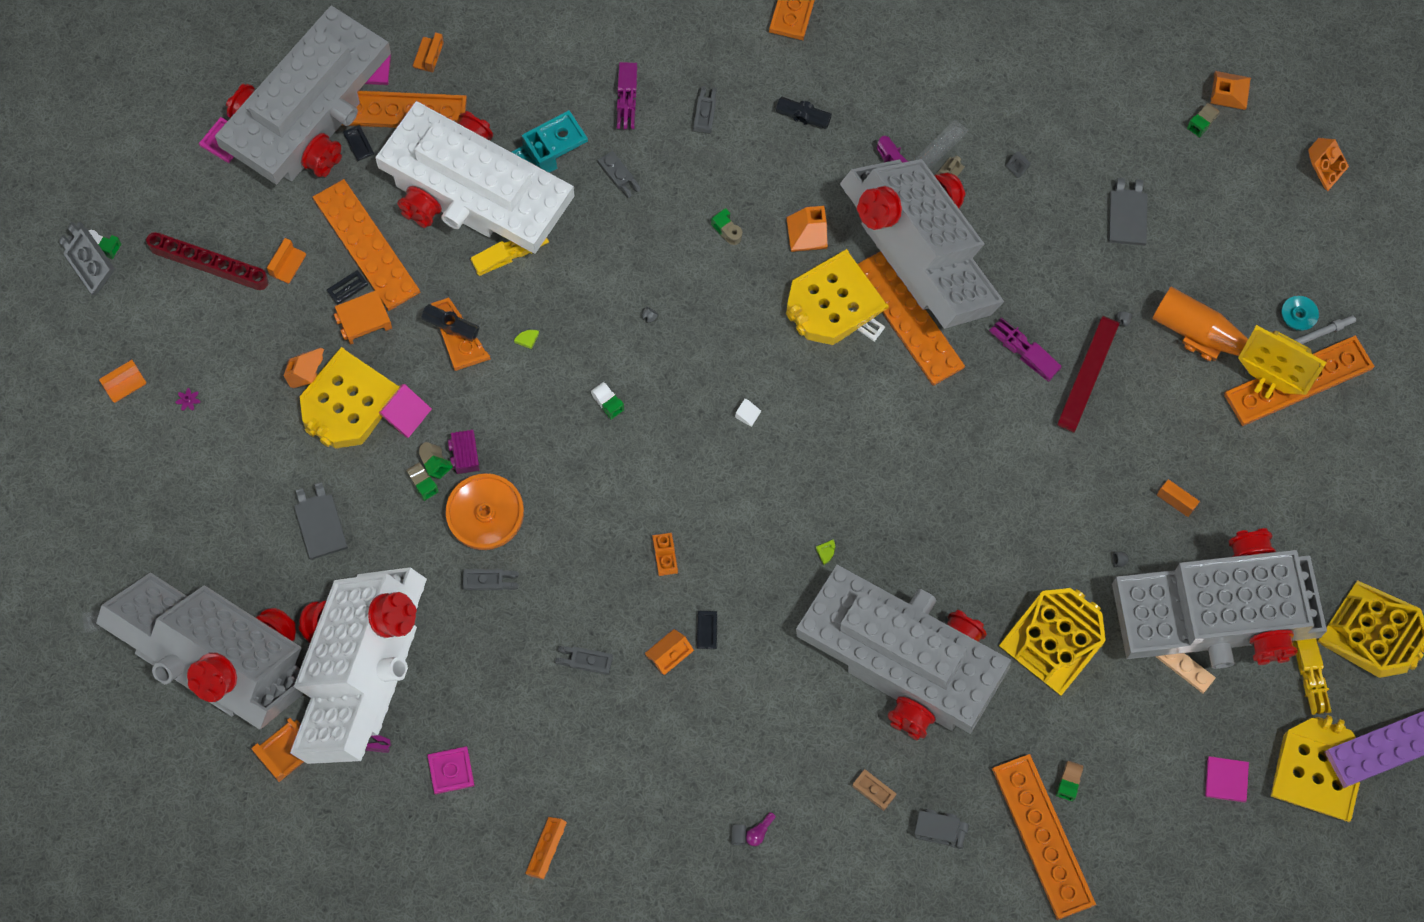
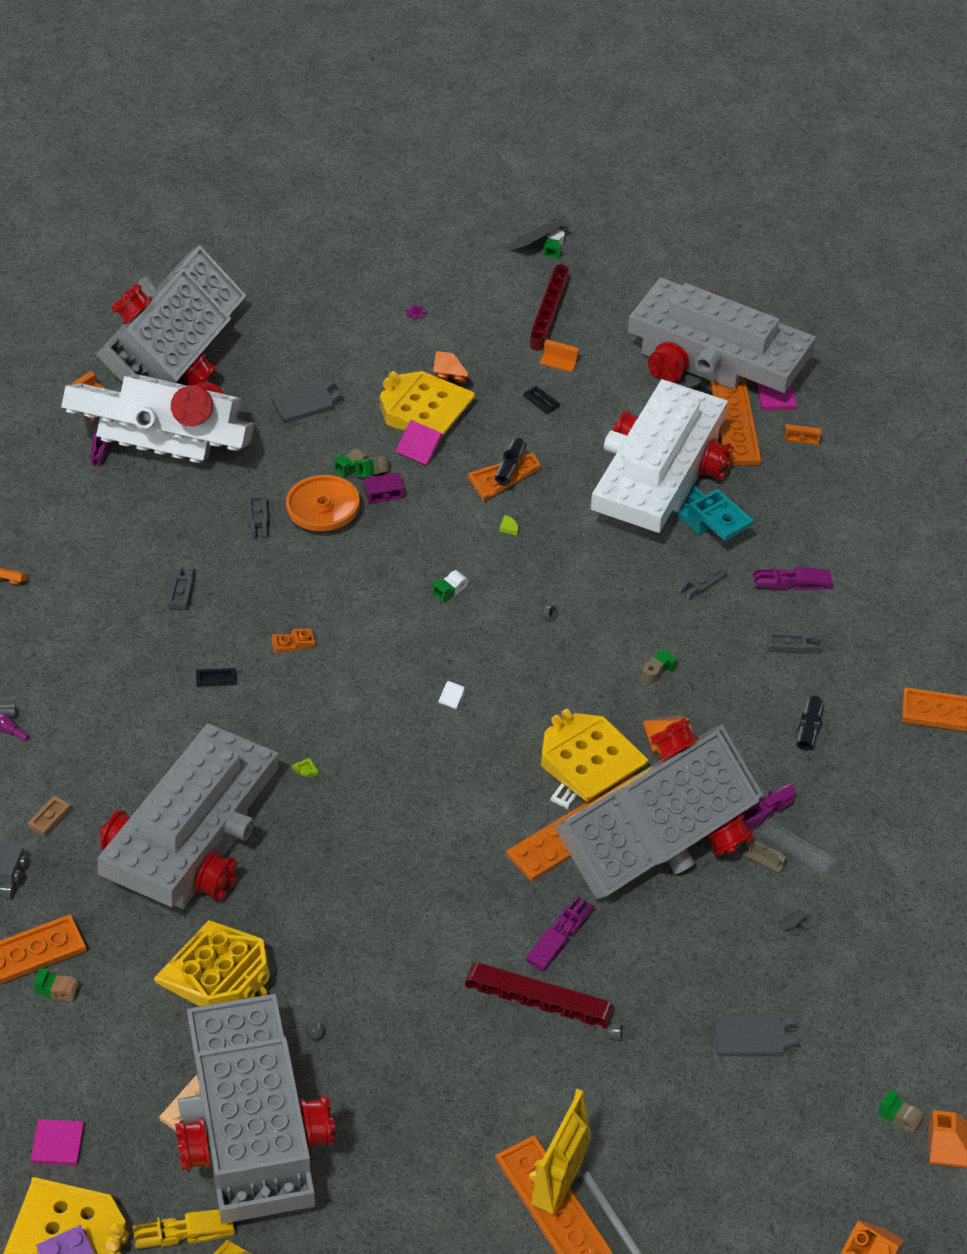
camera: 85 degrees right, 20 degrees down
(122, 381) = (427, 269): orange panel -> none
(362, 316) = (511, 409): orange panel -> none
(366, 244) = (587, 408): orange plate -> none
(451, 770) = (74, 505): dark pink tile -> none
(498, 256) = (583, 489): yellow arm -> none
(669, 651) = (190, 649): orange panel -> none
(1178, 498) = (394, 1088): orange panel -> none
(1200, 325) = (617, 1097): orange piece -> none
(1303, 306) = (655, 1210): teal dish -> none

